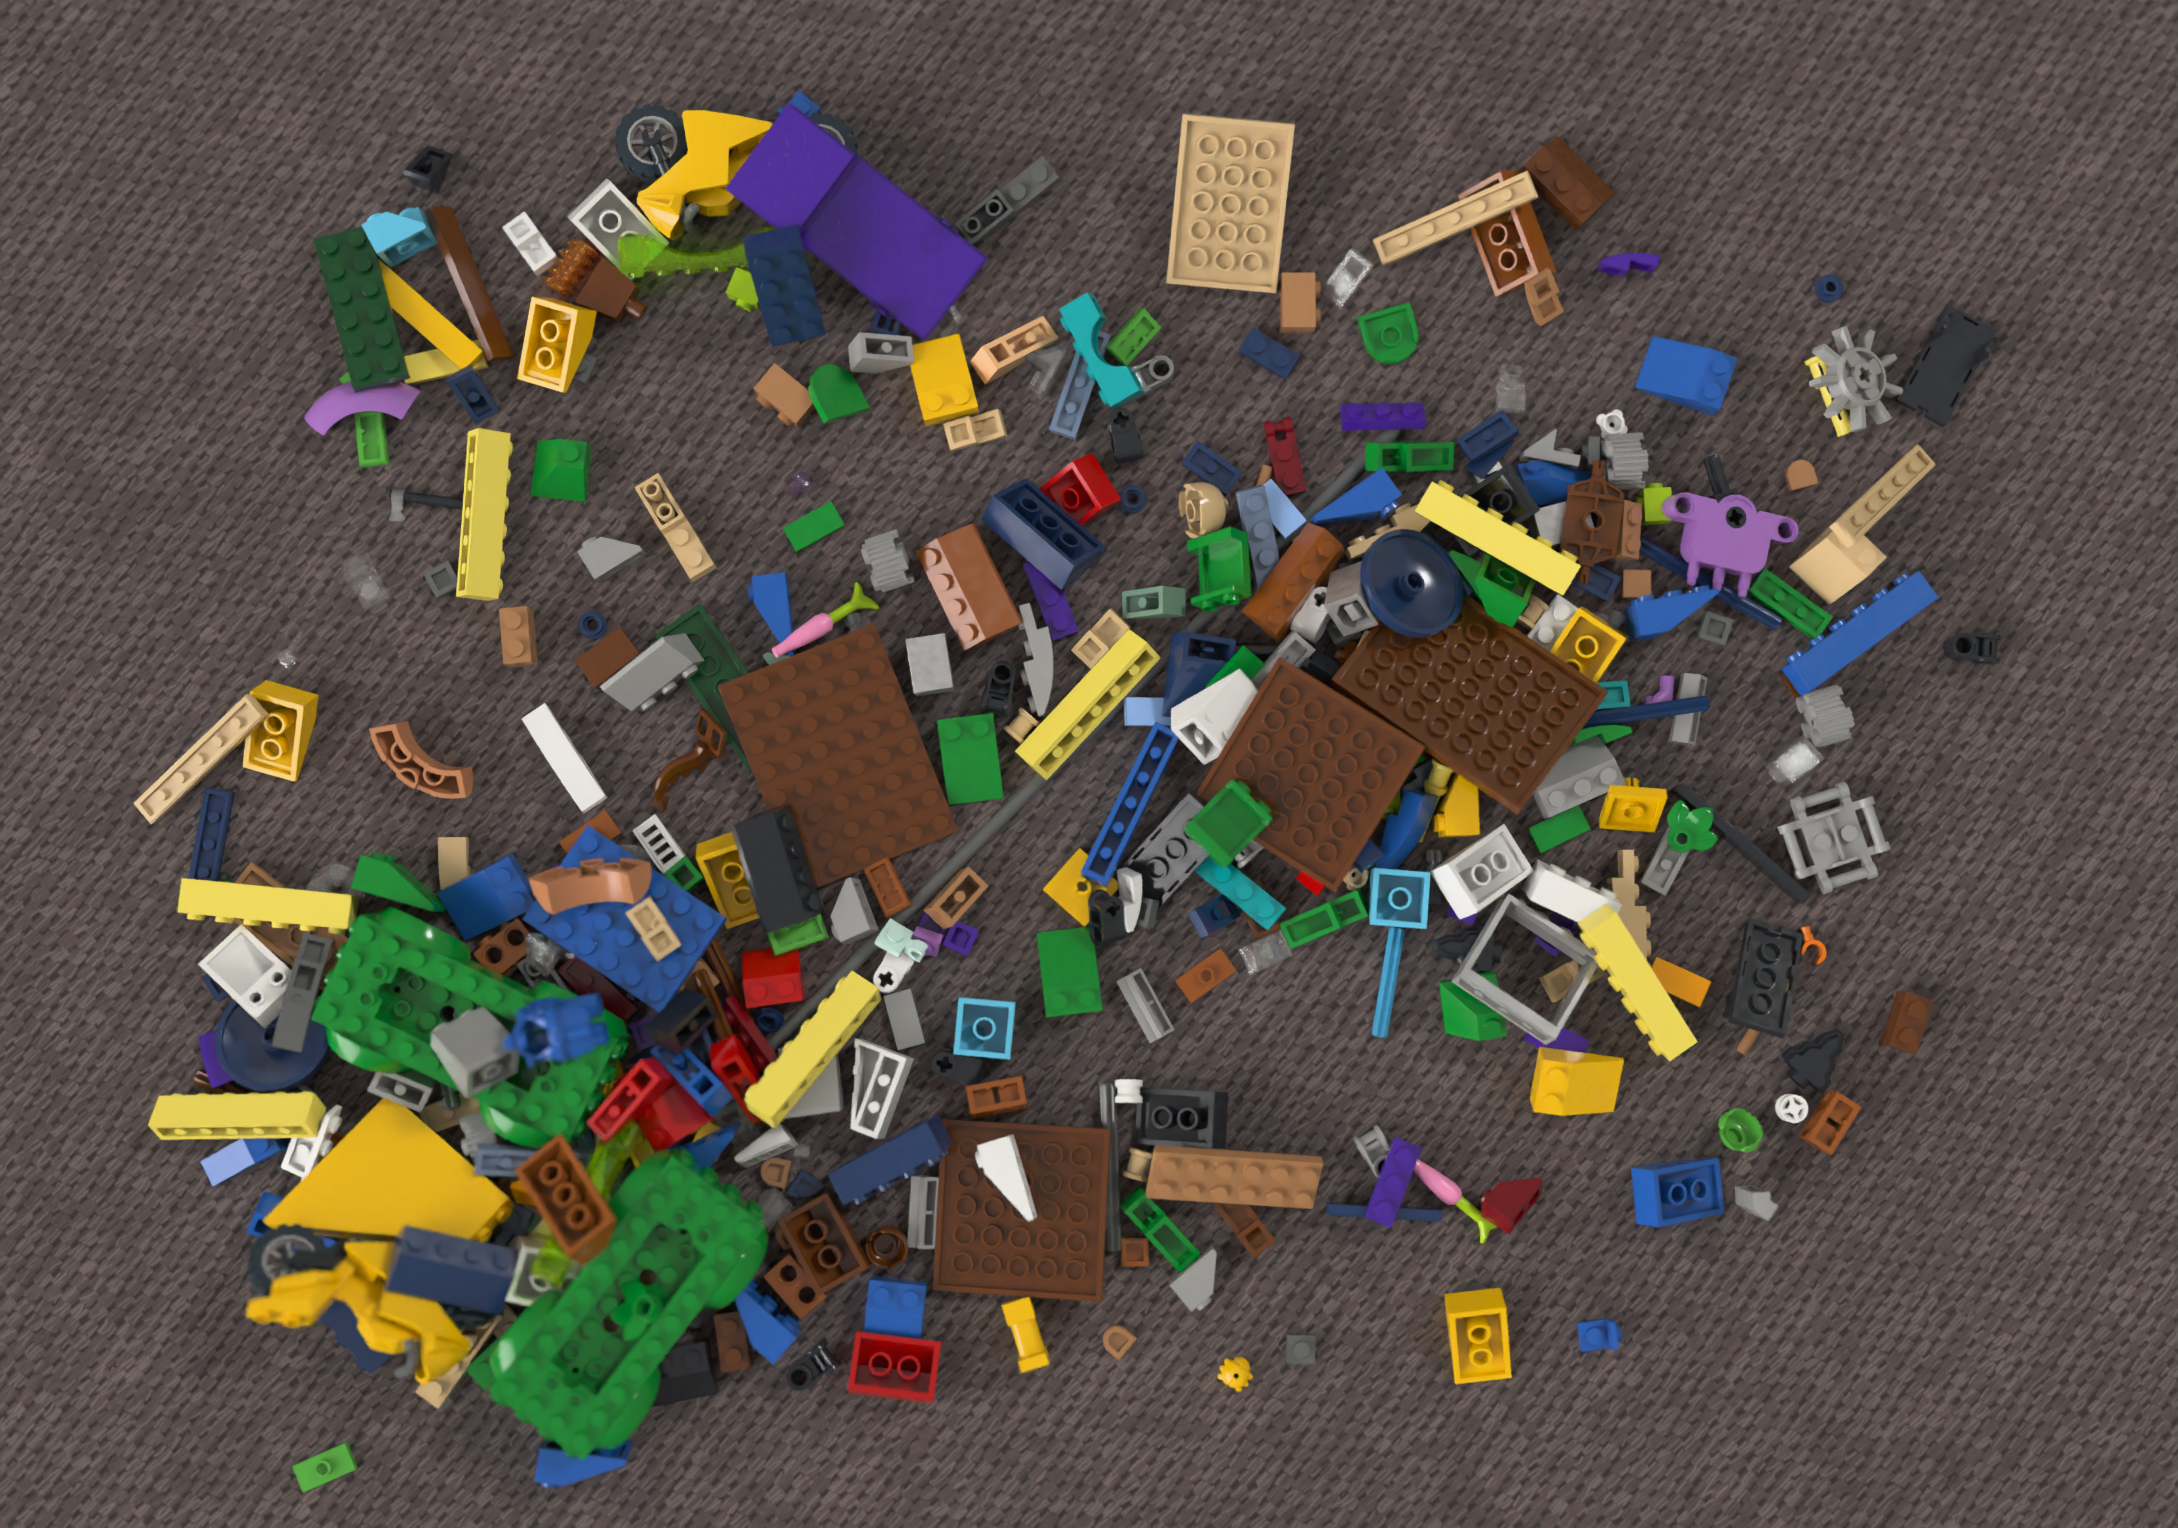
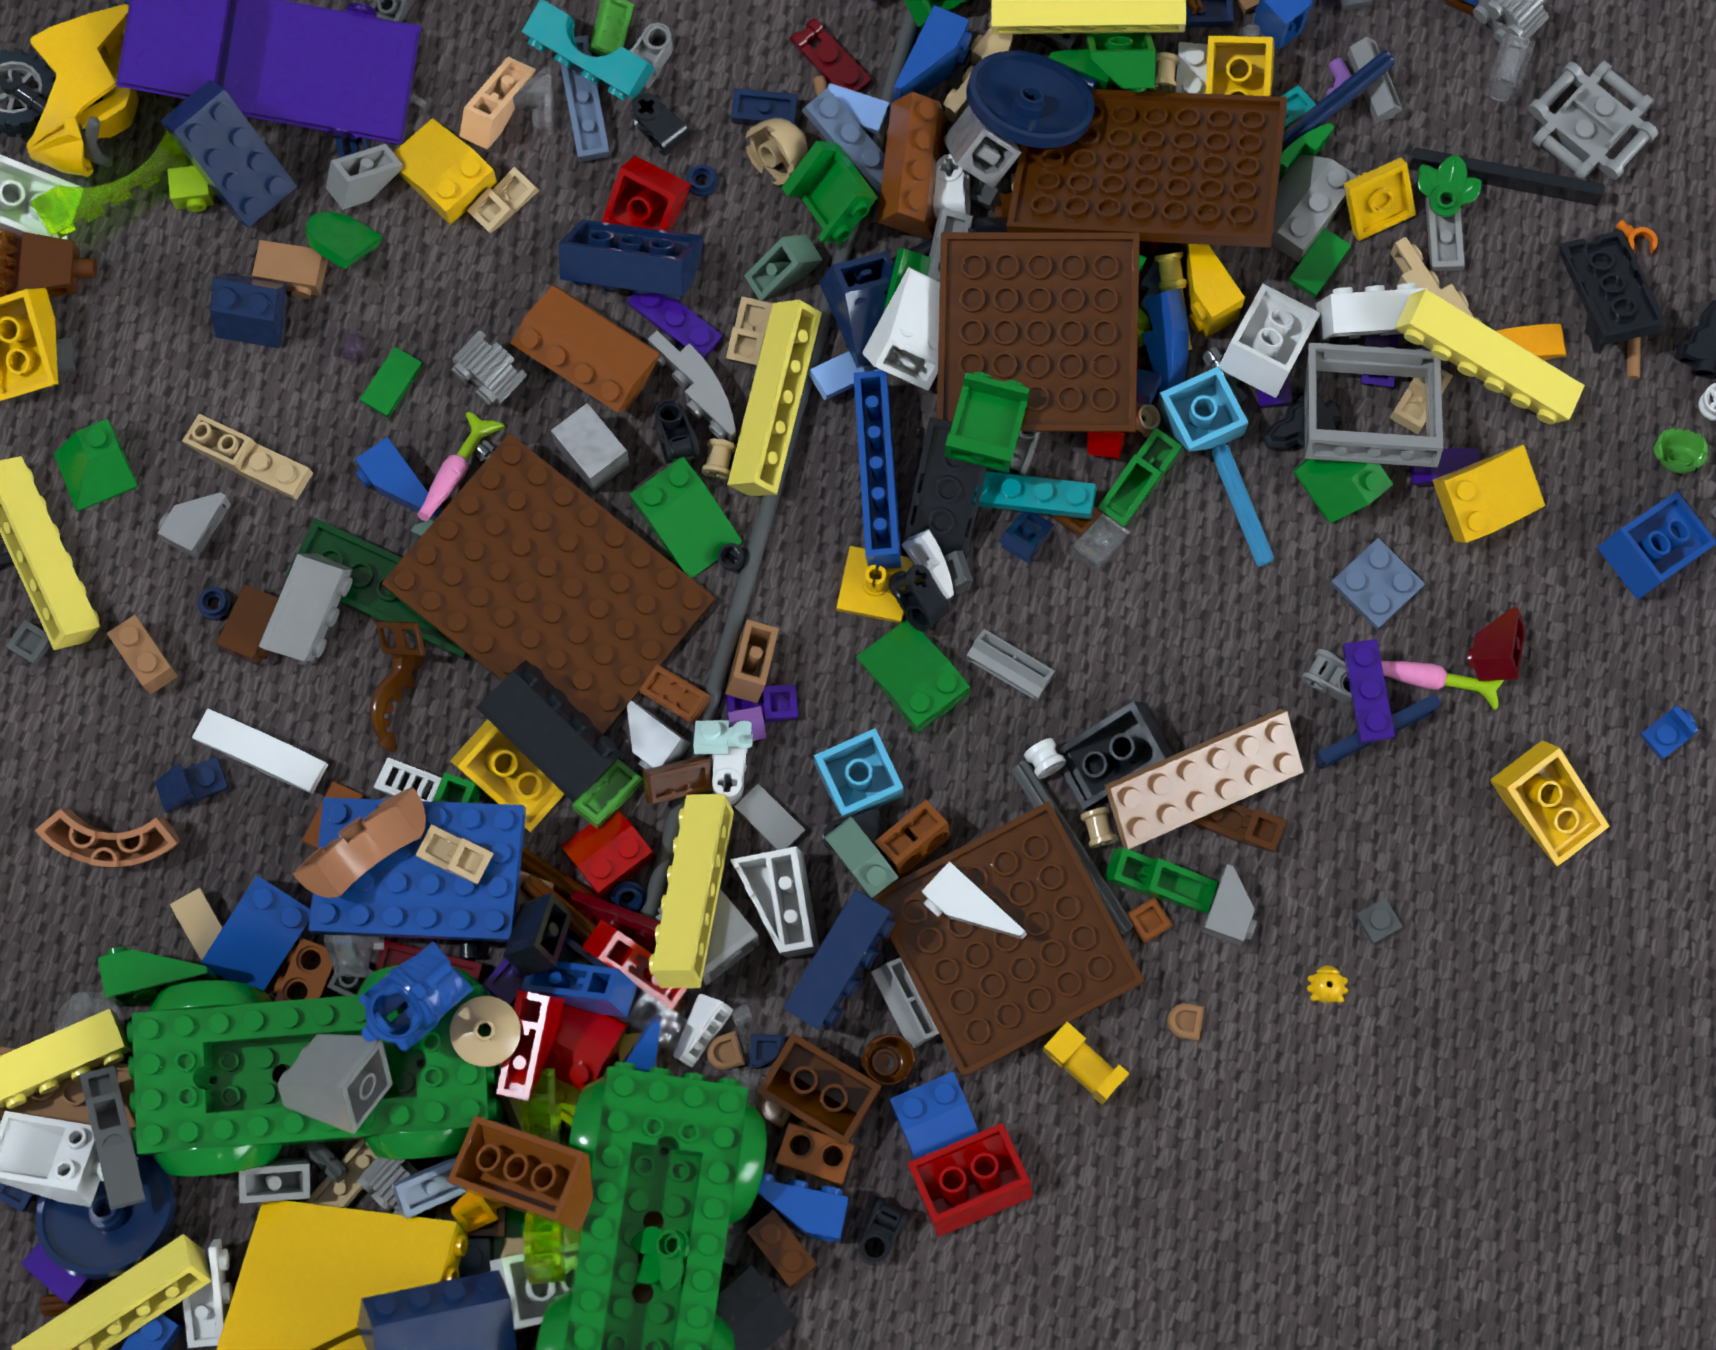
camera: 25 degrees left, 10 degrees down
(503, 753) = (188, 785): none -> dark blue slope
(614, 1069) = (485, 1050): none -> tan dish
(737, 411) = (248, 309): none -> dark blue slope
(851, 956) = (677, 780): none -> reddish brown plate
(949, 1093) = (861, 857): none -> sand green slope
(981, 810) = (738, 554): none -> black hinge
(1205, 975) = (1054, 601): dark orange plate -> none
(1452, 1099) = (1377, 583): none -> sand blue plate

